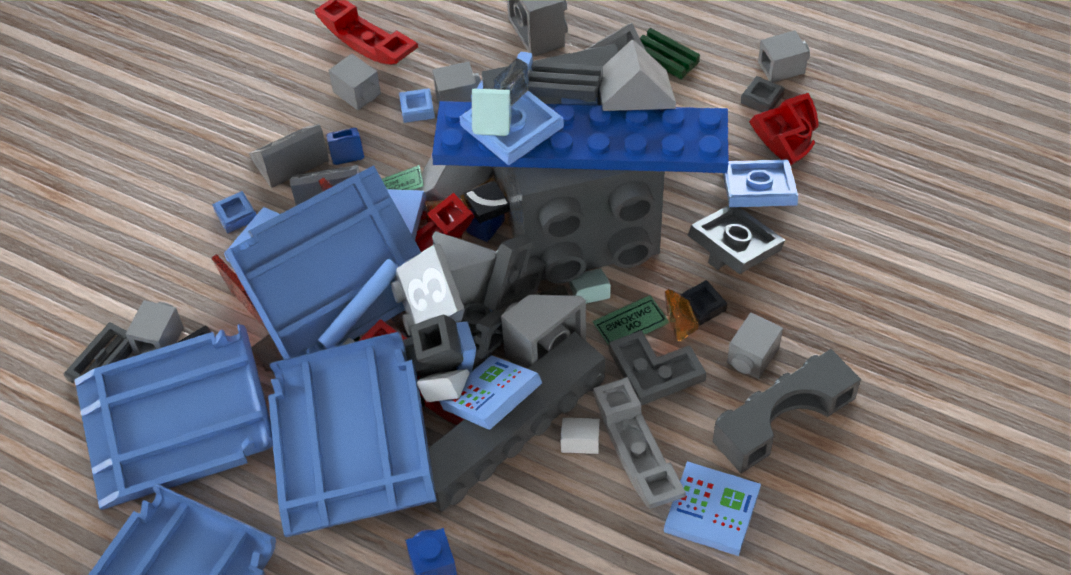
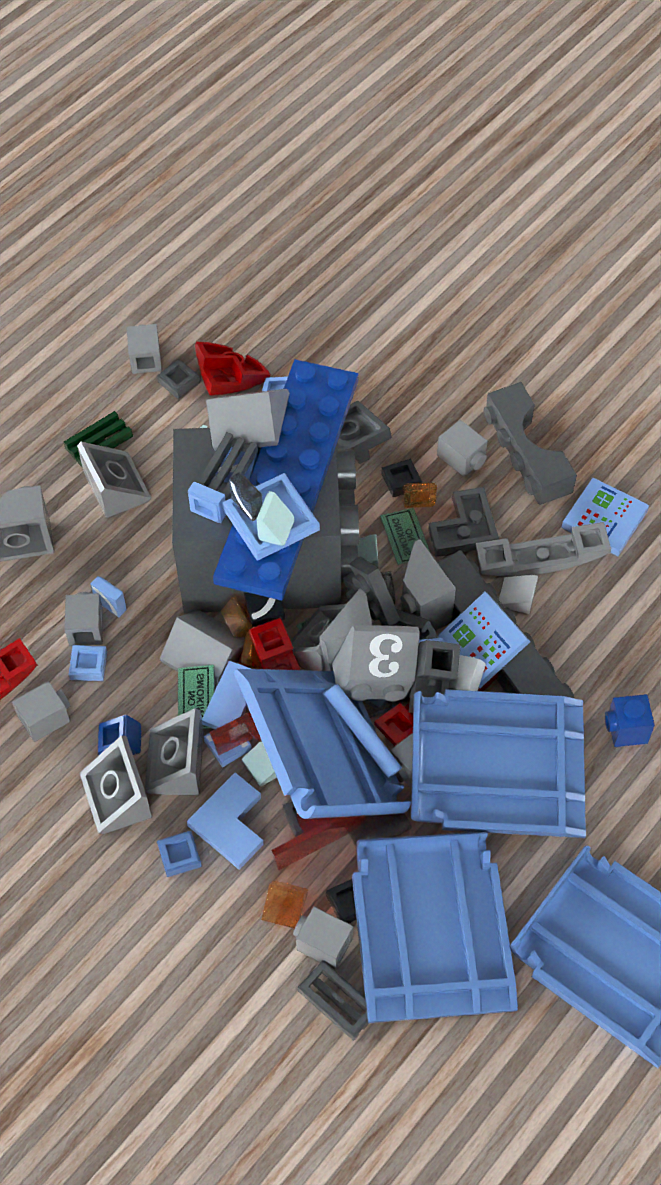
camera: 80 degrees left, 5 degrees up
(196, 298) = (284, 904): none -> clear orange slope

